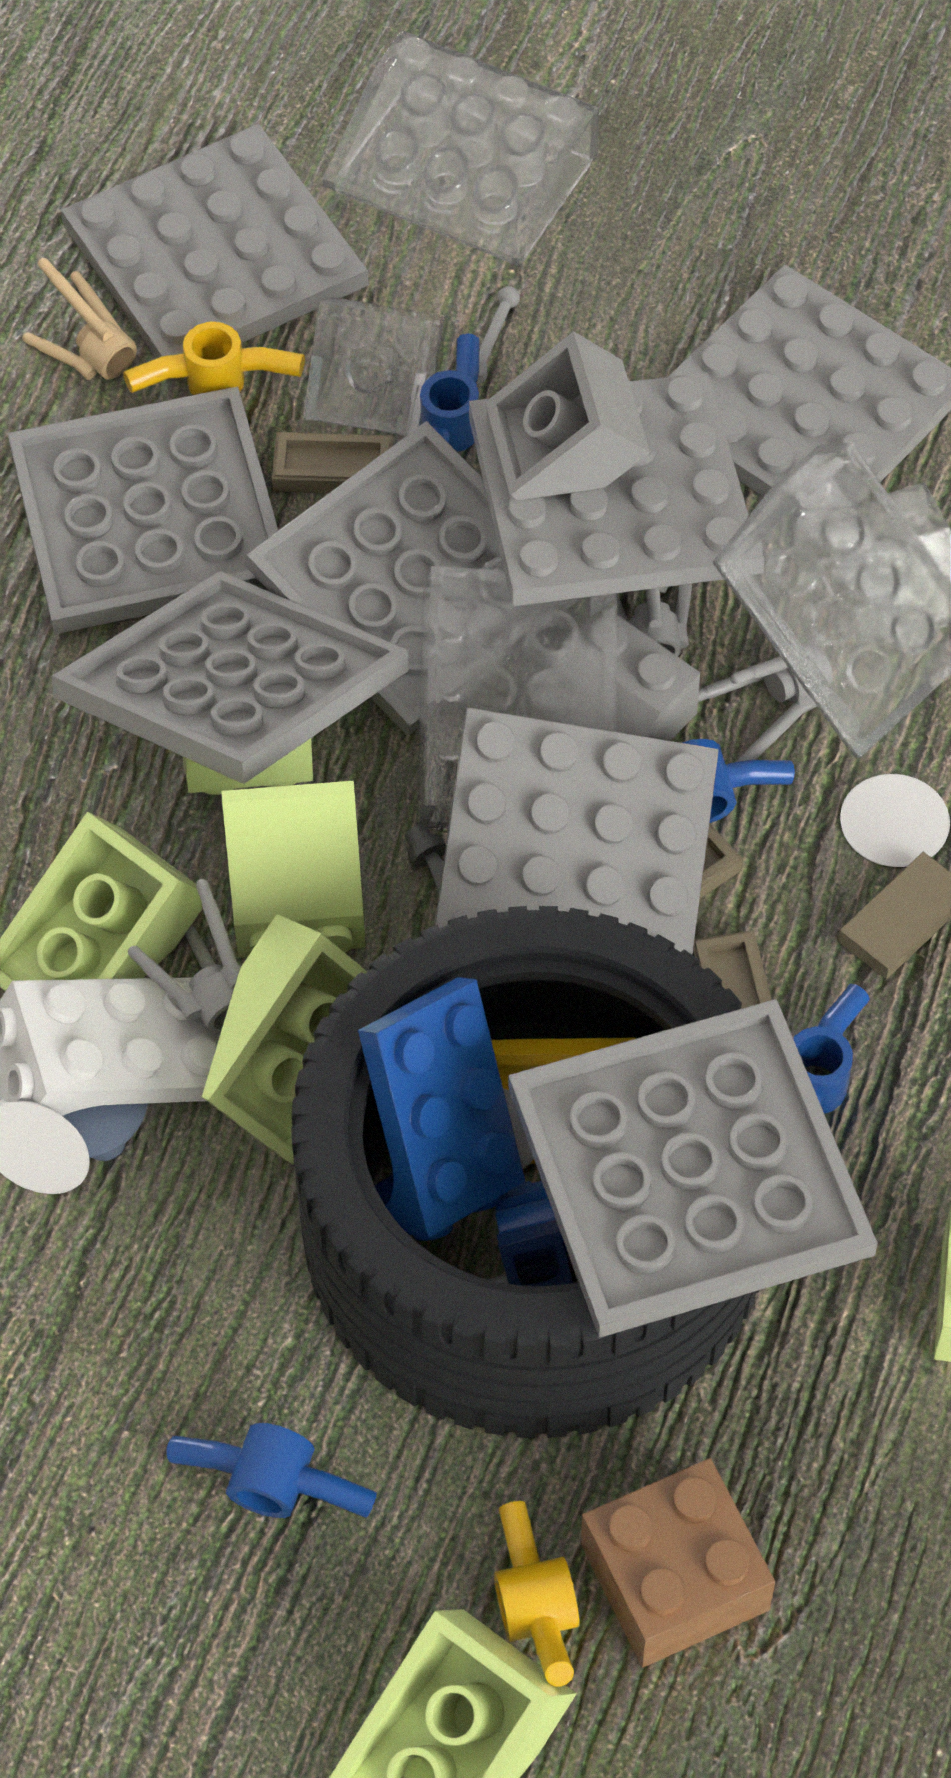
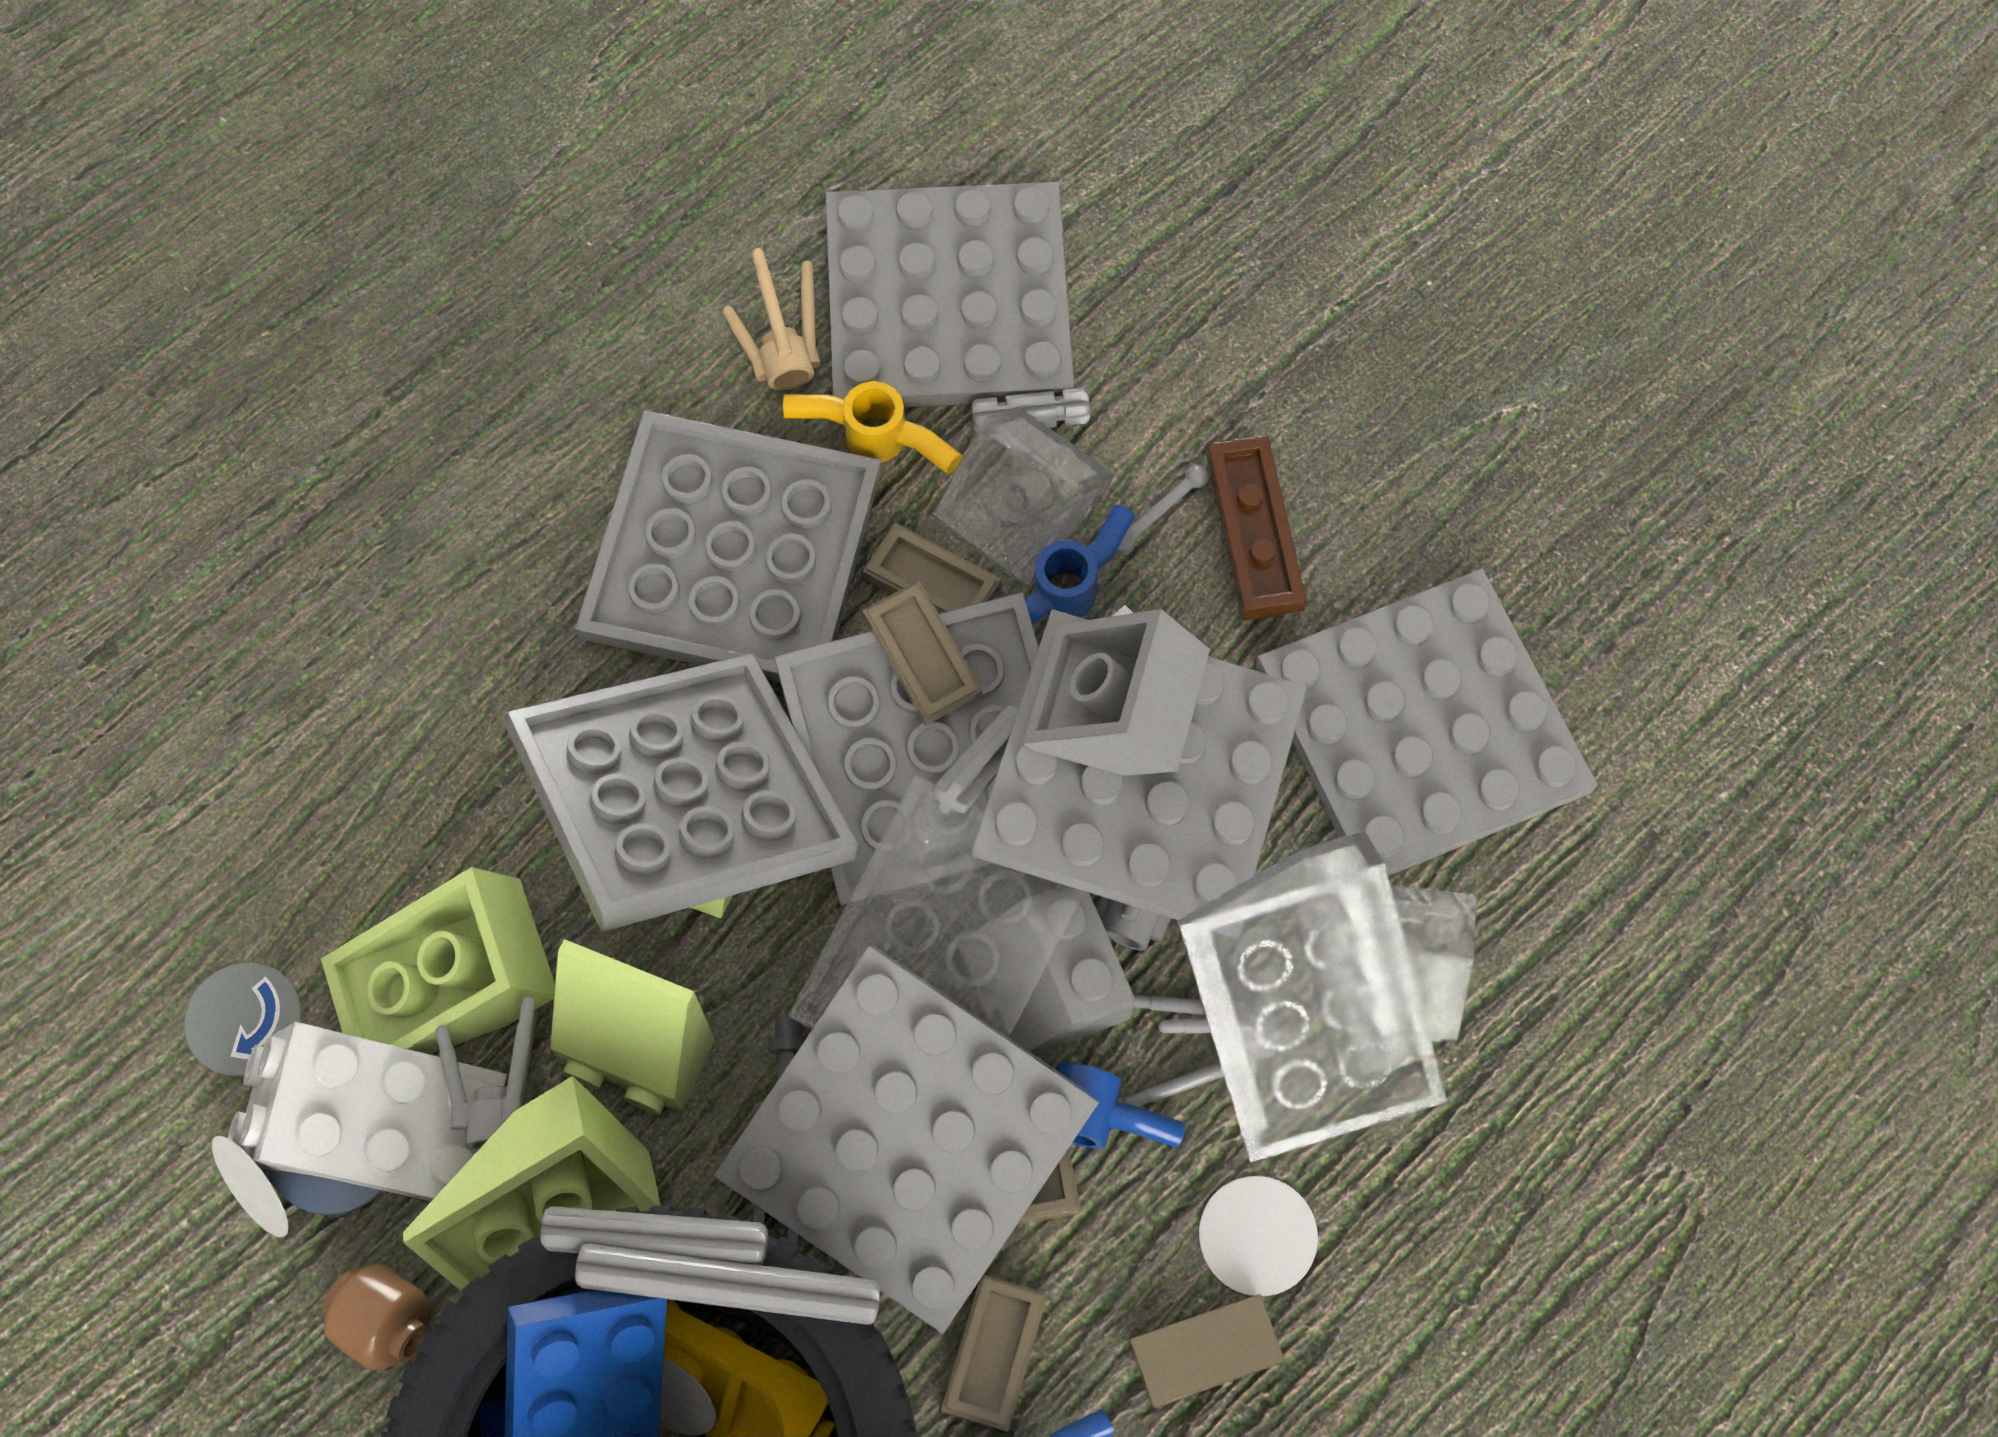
camera: 25 degrees right, 10 degrees up
(204, 1198) = (376, 1316): none -> medium nougat head
(370, 497) = (922, 652): none -> dark tan tile
(372, 288) = (1071, 407): none -> light grey axle
(440, 941) = (718, 1239): none -> light grey axle
(463, 148) = (1236, 298): clear slope -> none
(477, 538) = (976, 767): none -> light grey axle
(520, 944) = (727, 1283): none -> light grey axle
(580, 303) = (1256, 527): none -> reddish brown plate

